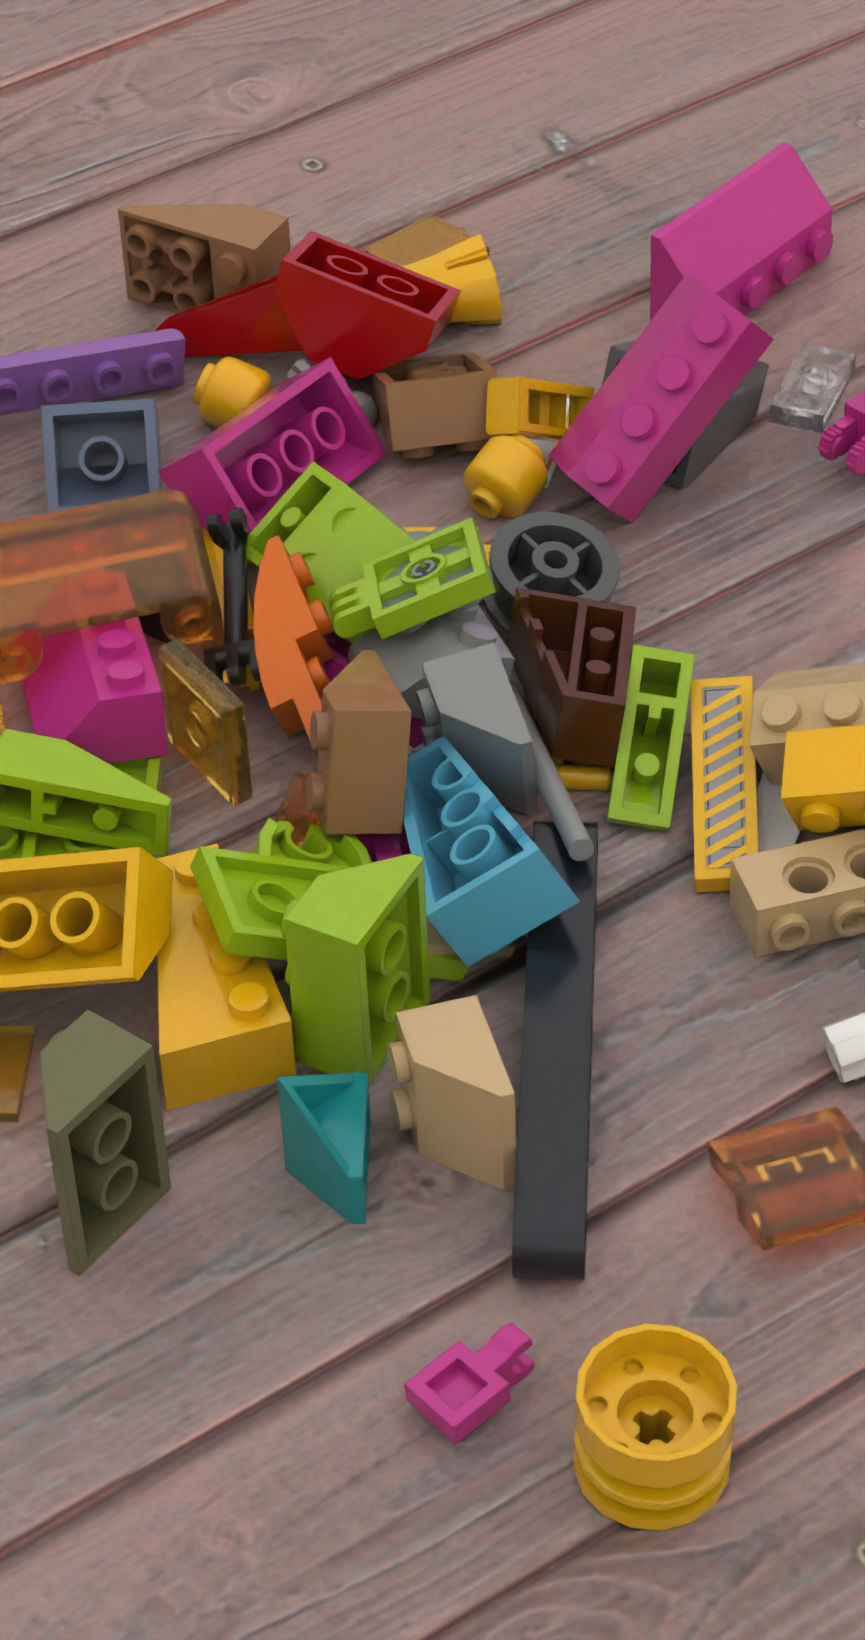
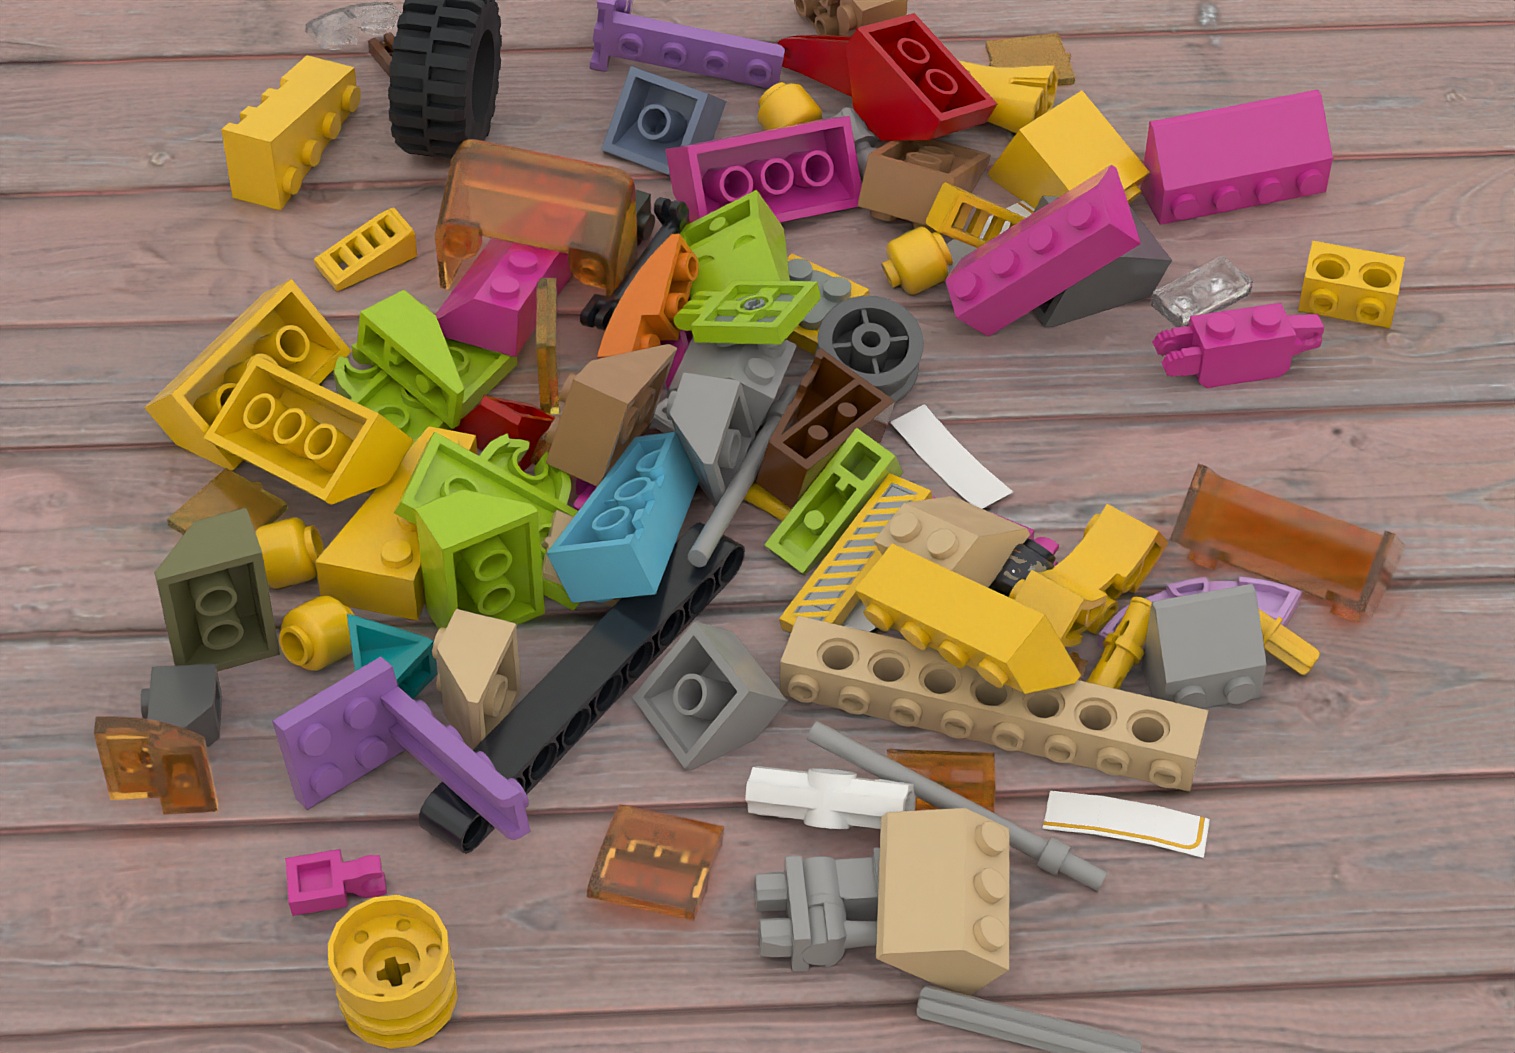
camera: 30 degrees right, 5 degrees up
(133, 1300) = (186, 698): none -> dark grey slope
(174, 1352) = (156, 761): none -> clear orange slope
(213, 1136) = (316, 633): none -> yellow head
(224, 821) = (502, 416): none -> red slope
(383, 1171) = (370, 721): none -> medium lavender bracket
(572, 317) = (1064, 151): none -> yellow slope
(699, 990) = (708, 696): none -> light grey slope
(714, 653) = (949, 458): none -> white sticker

